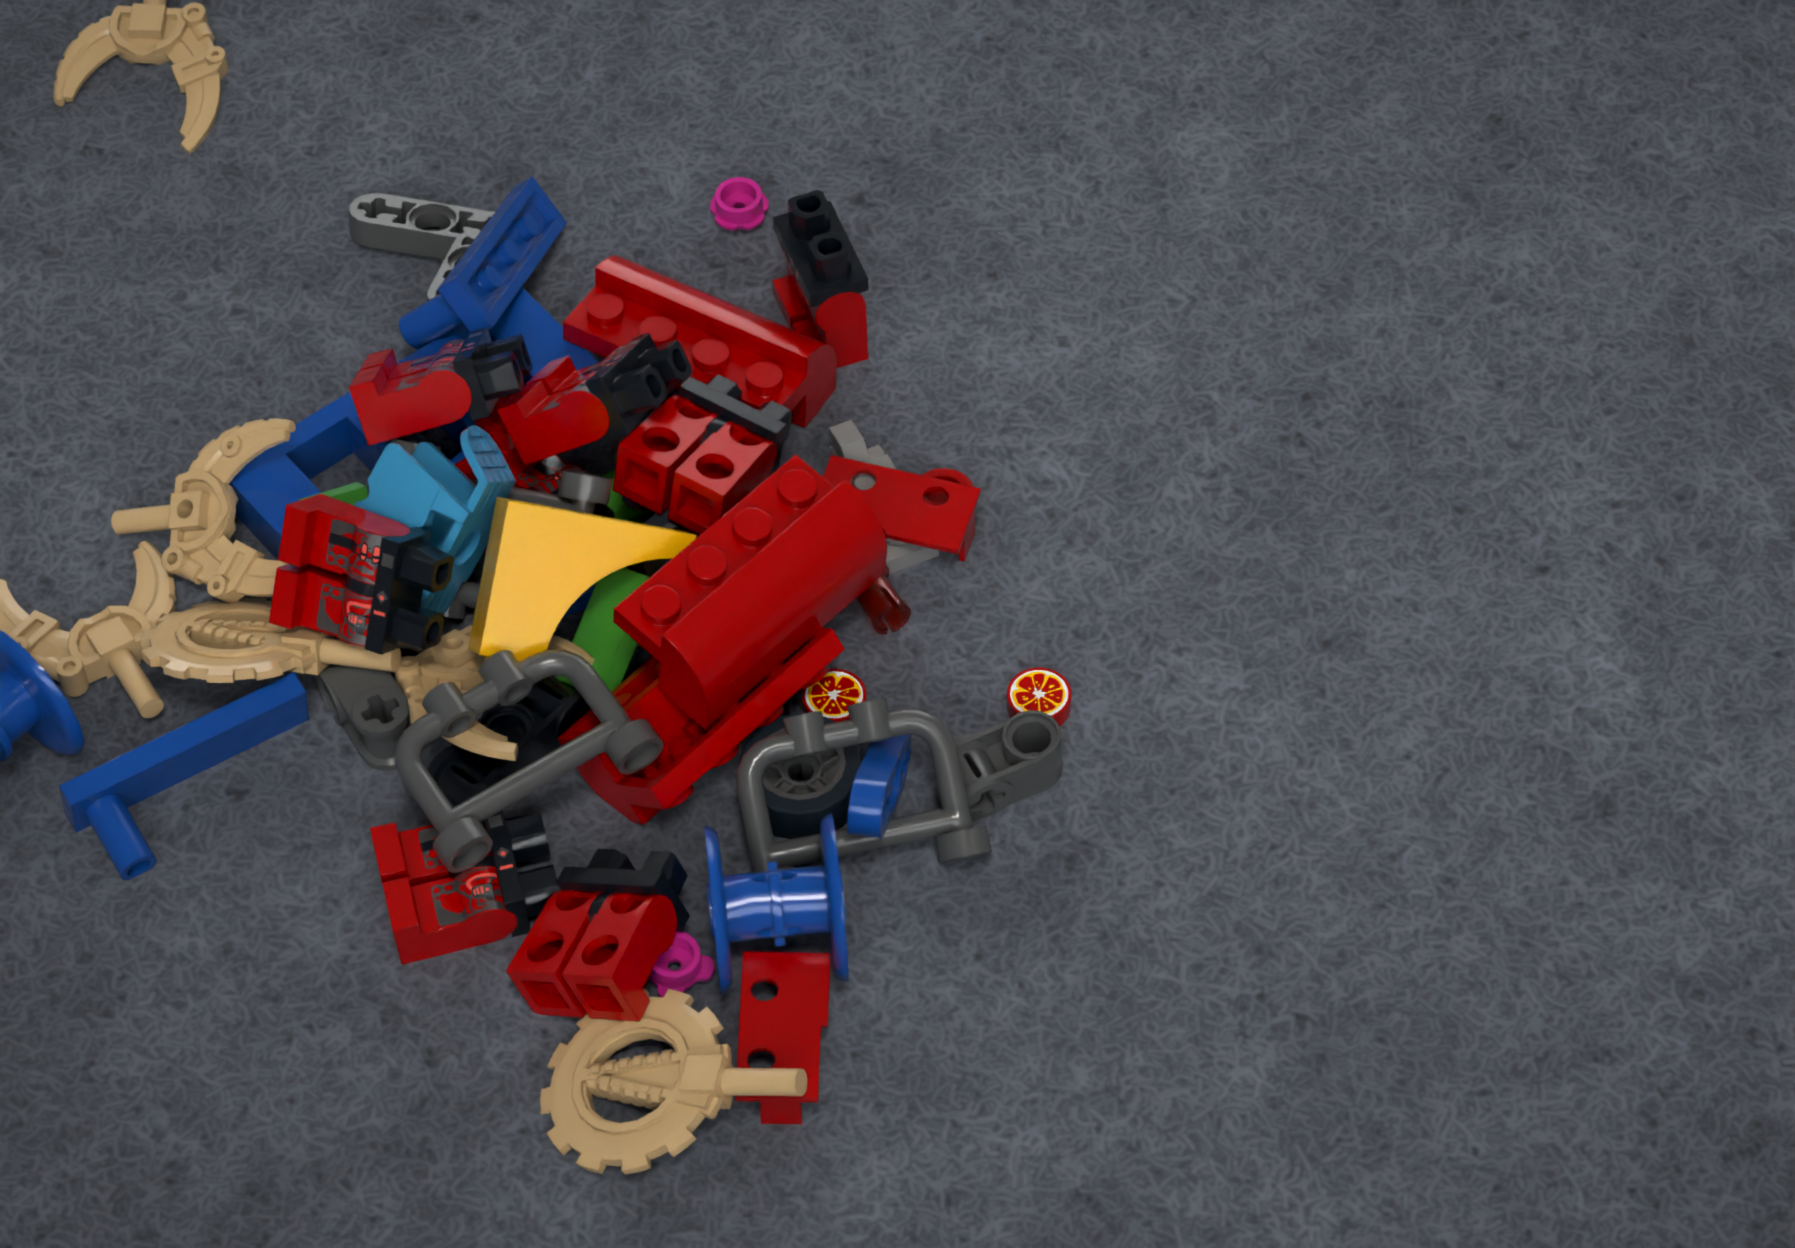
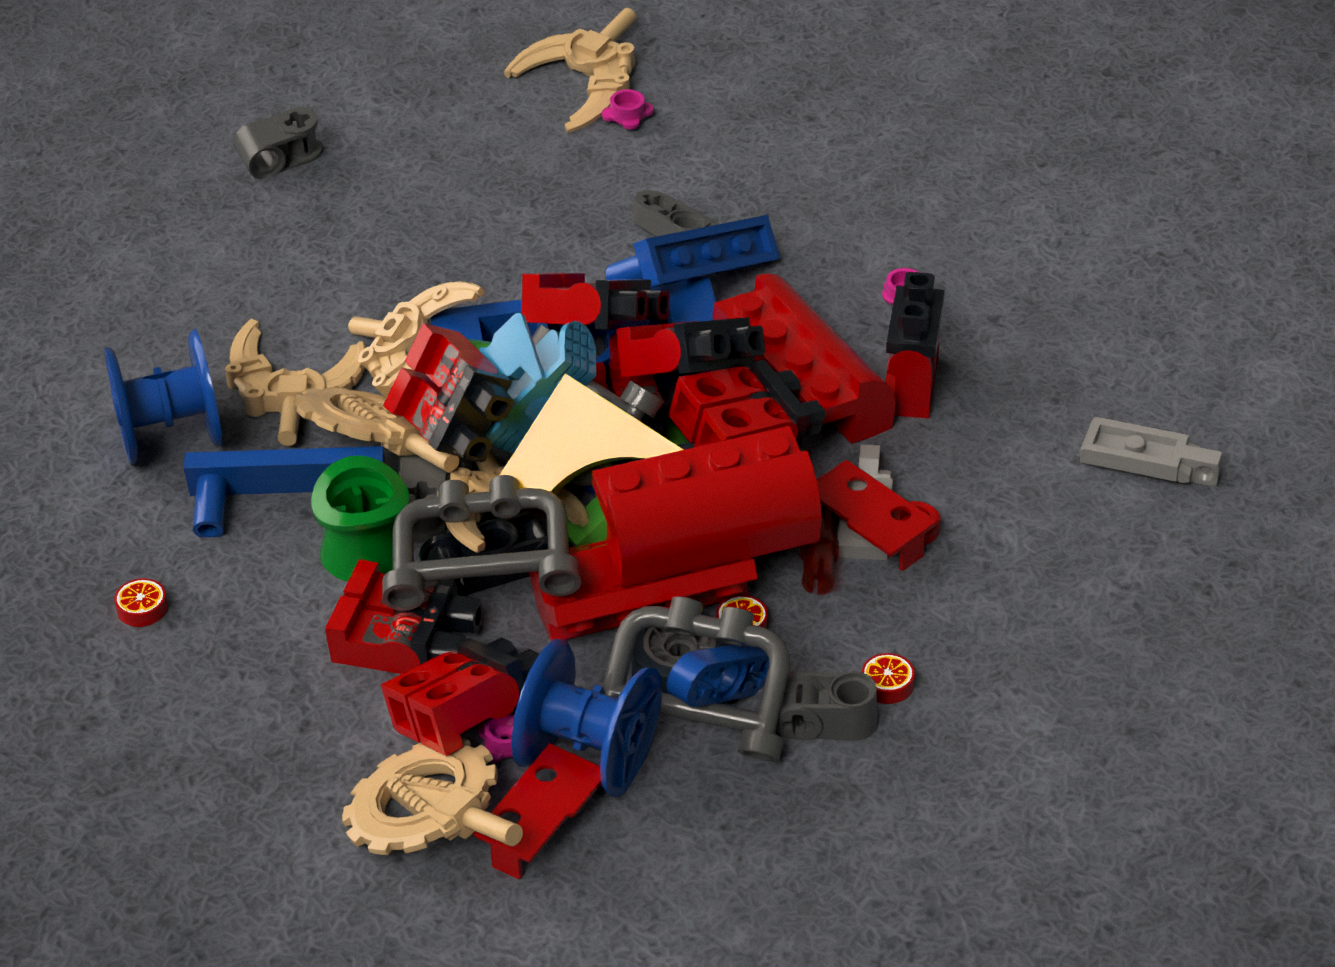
camera: 30 degrees right, 10 degrees down
(124, 995) = (141, 602): none -> red tile
(248, 94) = (627, 108): none -> dark pink plate
(332, 774) = (358, 508): none -> green hat
(1140, 301) = (1149, 452): none -> light grey hinge

